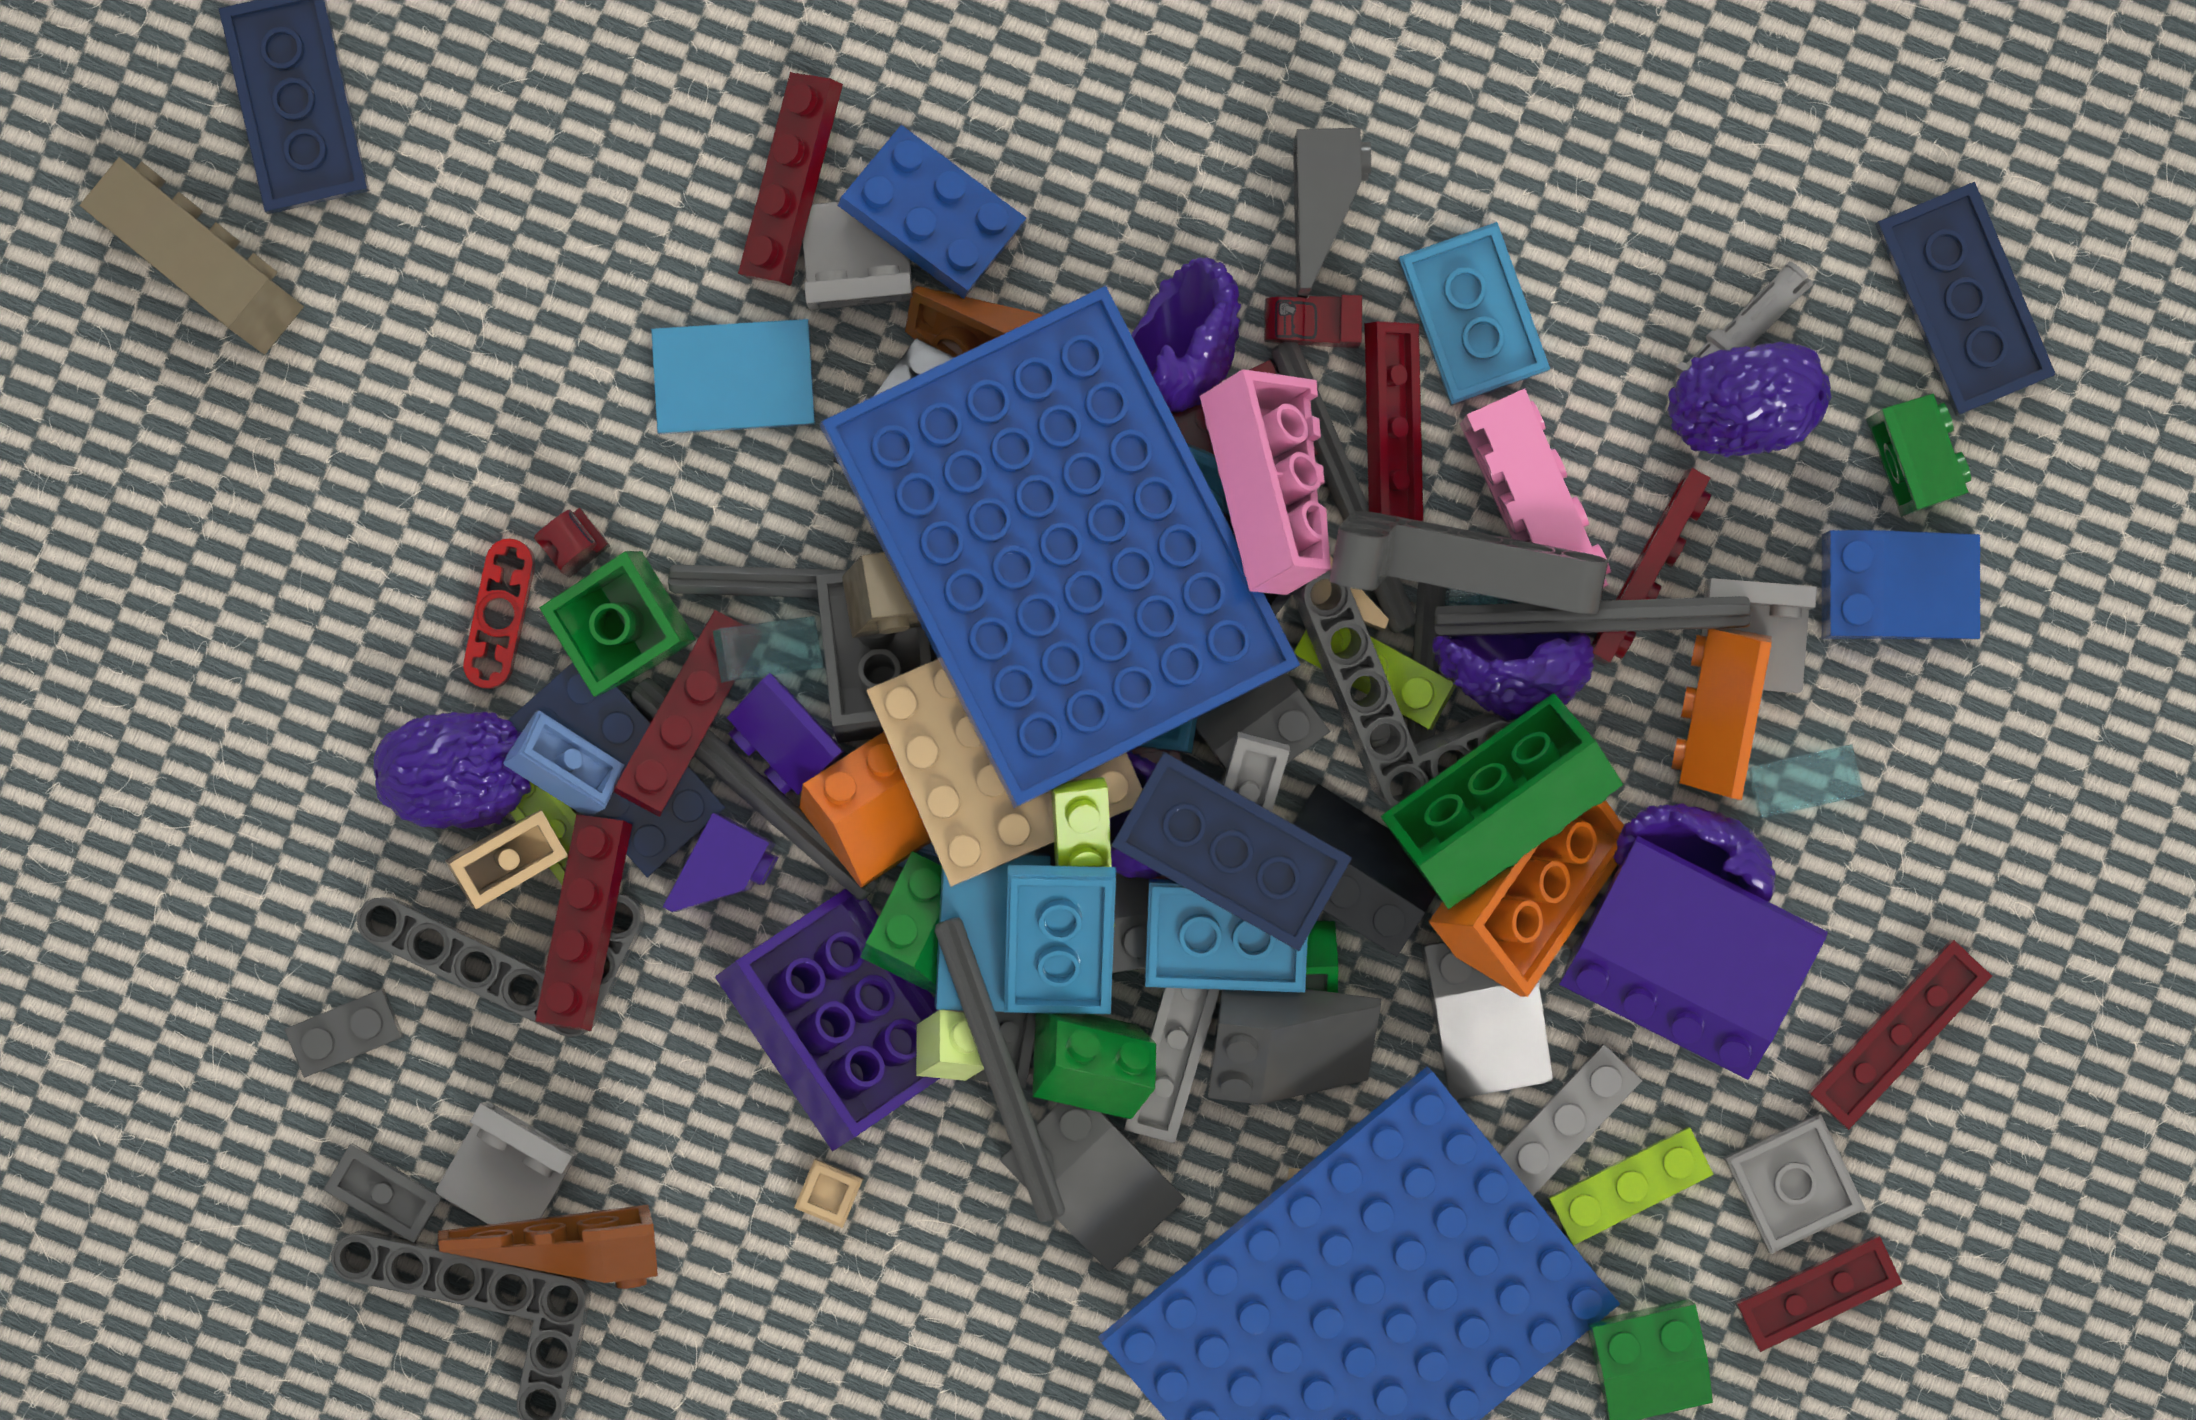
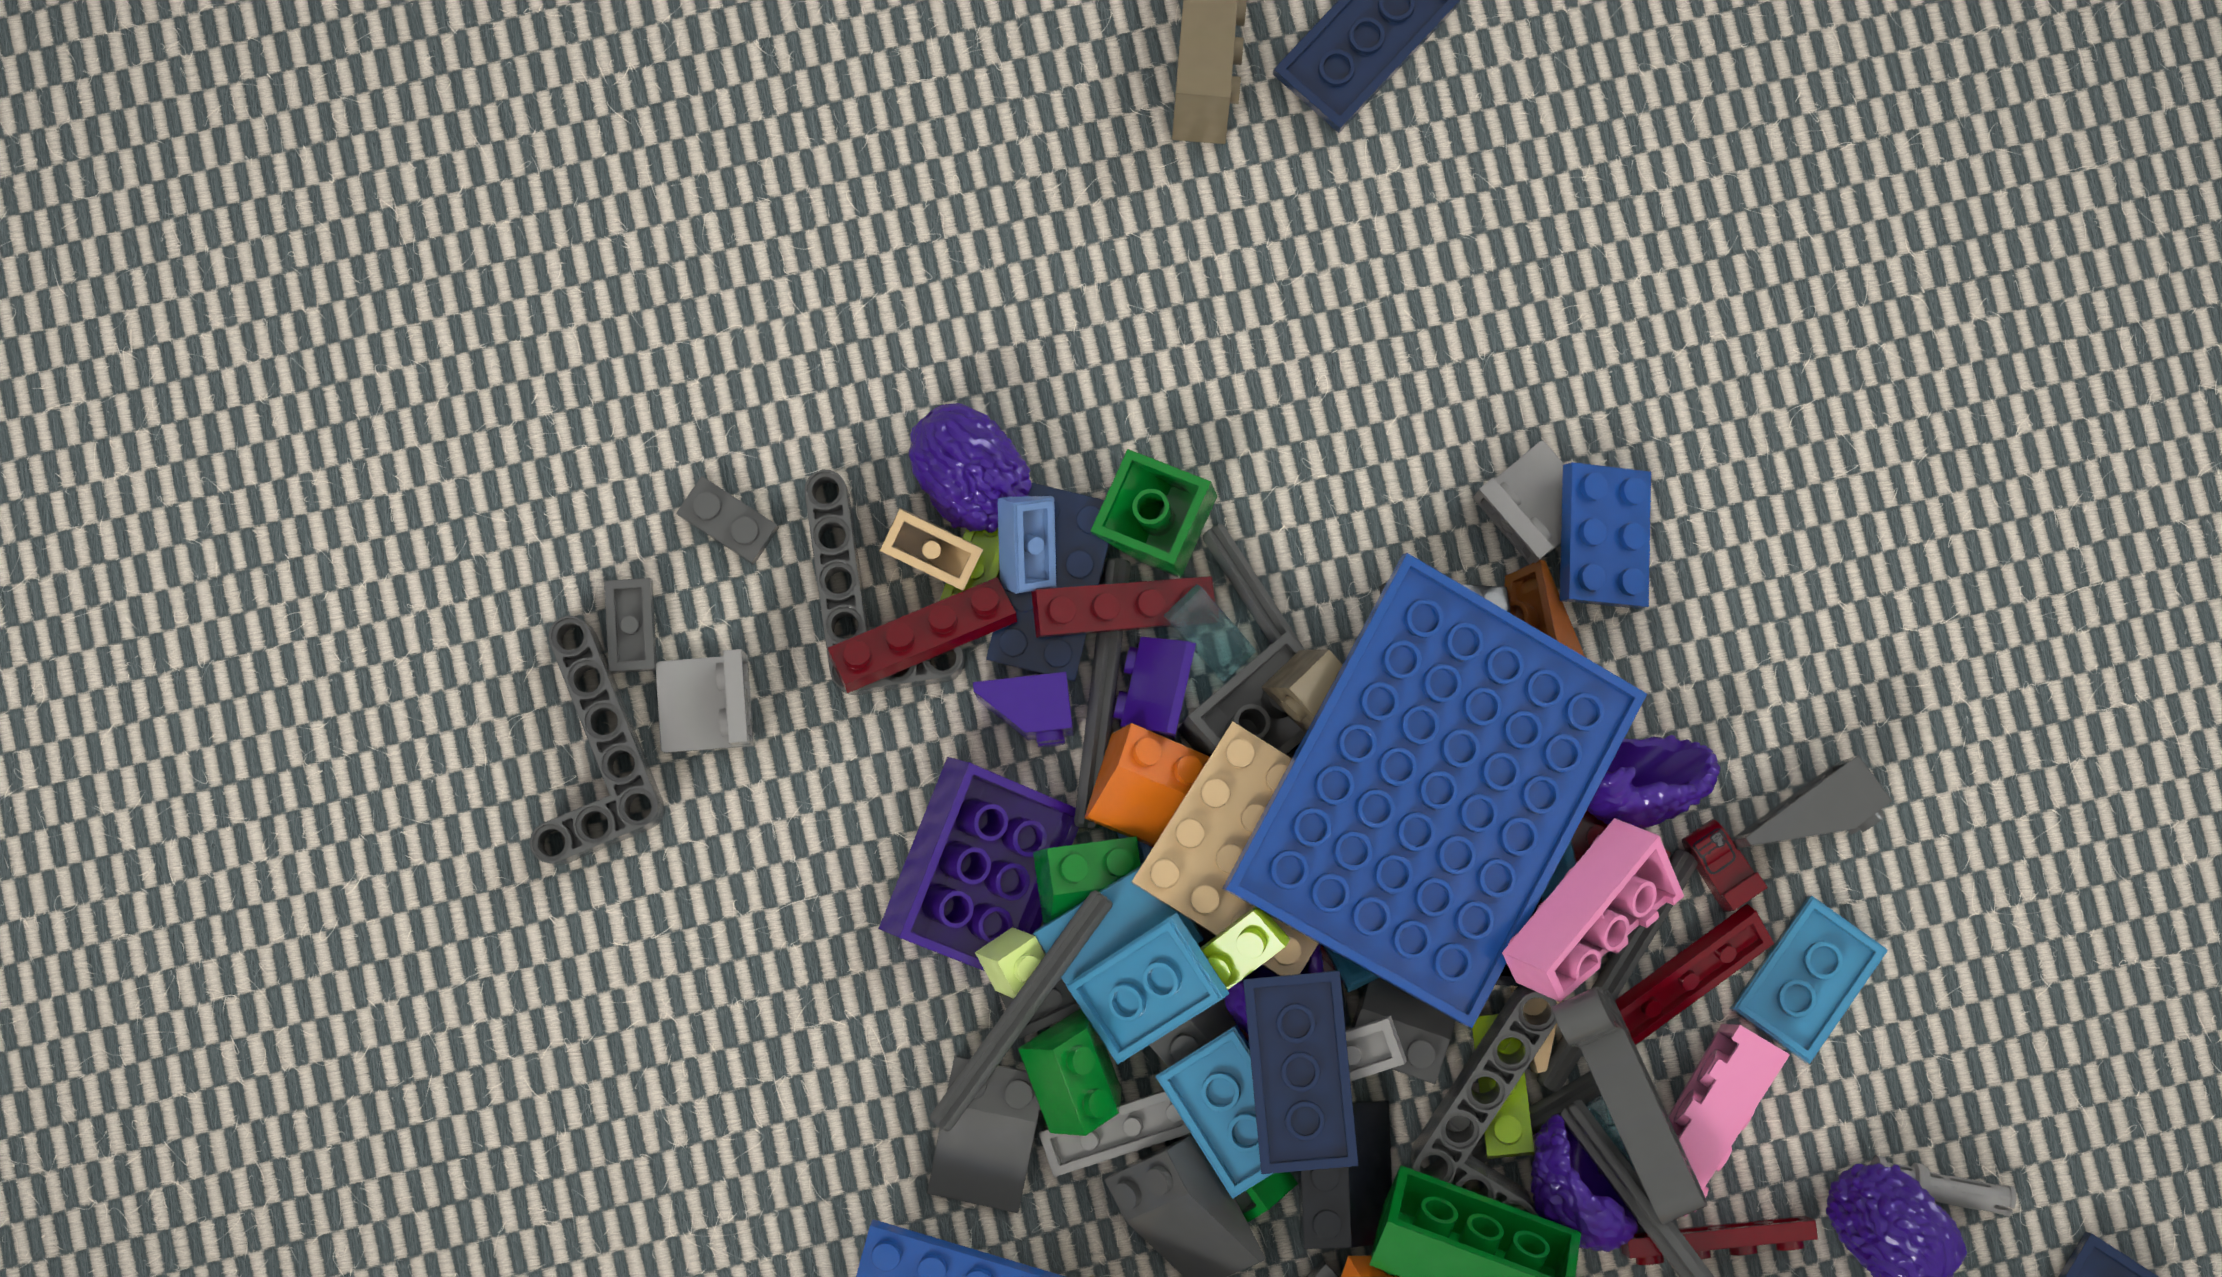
camera: 55 degrees right, 5 degrees down
(480, 649) = (1138, 425): red beam -> none
(571, 541) = (1190, 440): dark red leg -> none
(588, 1245) = (689, 796): dark orange wedge -> none
(733, 376) = (1387, 476): dark azure tile -> none
(790, 178) = (1557, 419): dark red plate -> none
(828, 1193) = (846, 947): tan tile -> none

